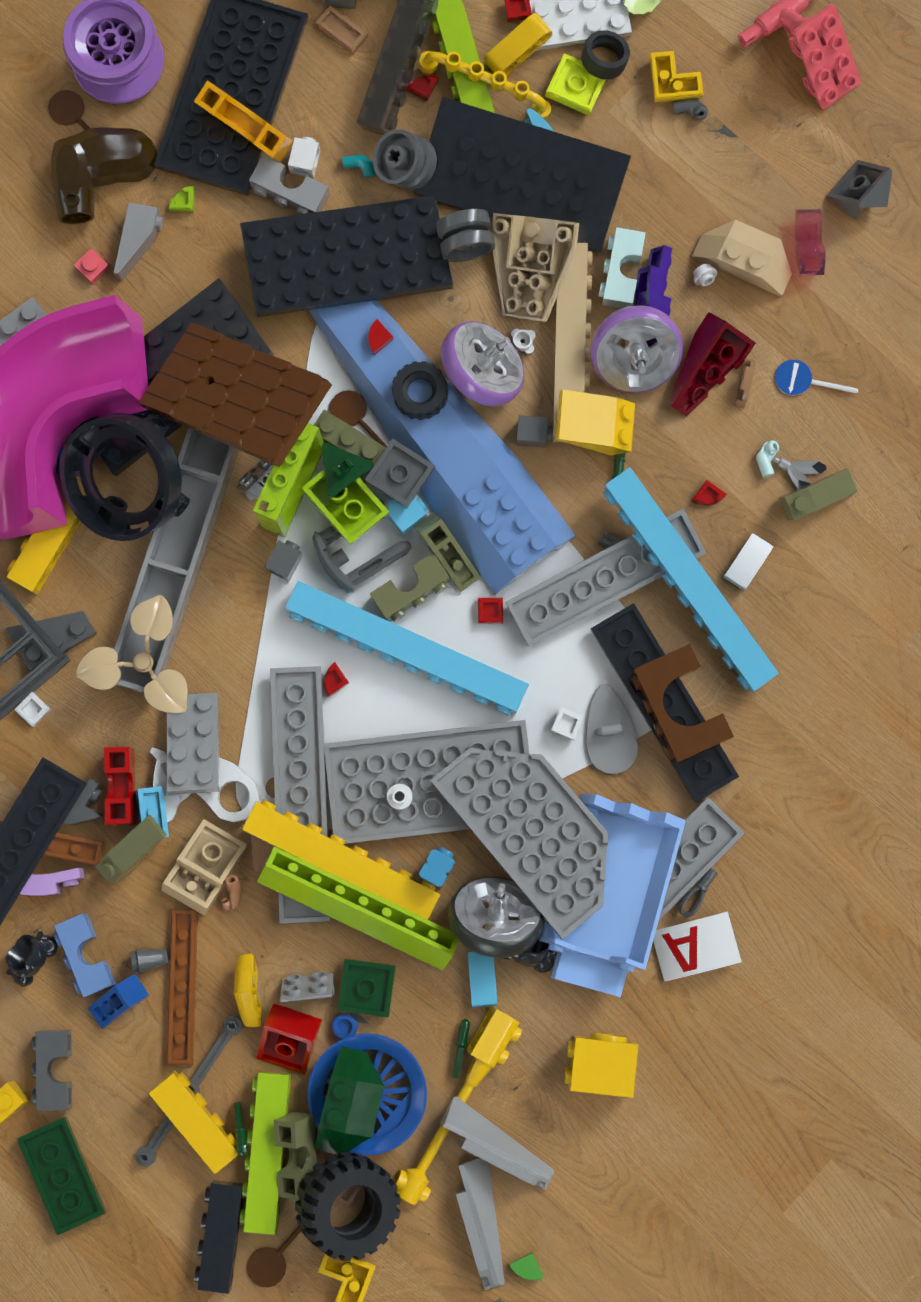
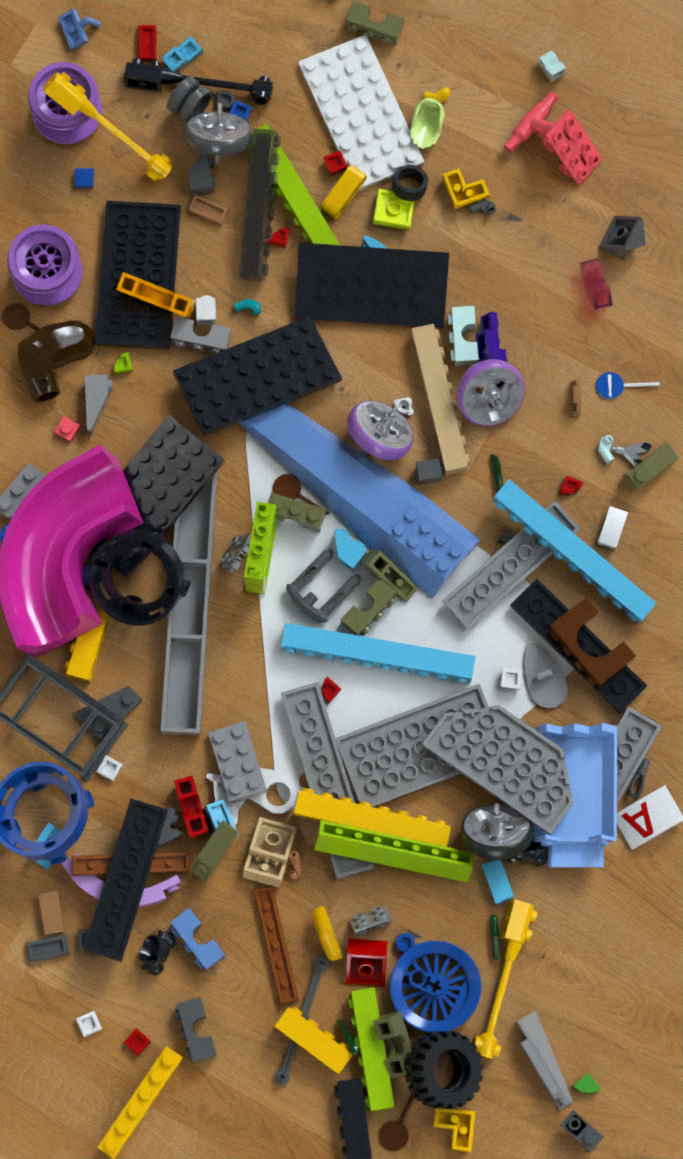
camera: 20 degrees left, 5 degrees down
(61, 1175) = (223, 1106): dark green plate -> none
(101, 665) = (158, 722): tan plant -> none
(118, 1001) = (231, 966): blue arch -> none
(148, 959) = (244, 931): dark grey cone -> none
(235, 394) = (207, 495): reddish brown piece -> none
(284, 560) = (270, 610): dark grey brick -> none
(342, 468) = (297, 531): dark green piece -> none
(350, 511) = (304, 555): lime slope -> none
(350, 1103) = (426, 995): dark green wedge -> none
(366, 988) = (414, 910): dark green plate -> none
(378, 337) = (298, 429): red tile -> none
(399, 473) = (340, 525): dark grey plate -> none
(399, 804) = (402, 768): white plate -> none
(404, 159) = (282, 295): dark grey wheel -> none
(416, 371) = (339, 475): black tyre -> none
(429, 62) = (281, 218): yellow bar -> none
(438, 866) = (444, 806): dark azure brick -> none
(465, 235) = (342, 339): dark grey wheel -> none
(490, 610) = (432, 610): red tile -> none
(494, 1145) = (538, 1000): light grey wedge -> none
(531, 262) = (396, 347): tan wedge -> none
(595, 422) = (474, 452): yellow slope -> none
(602, 1065) = (602, 920): yellow brick -> none
(704, 275) = (525, 326): white plate -> none
(711, 356) = (545, 384): dark red wedge -> none
(746, 255) = (551, 304): tan wedge -> none

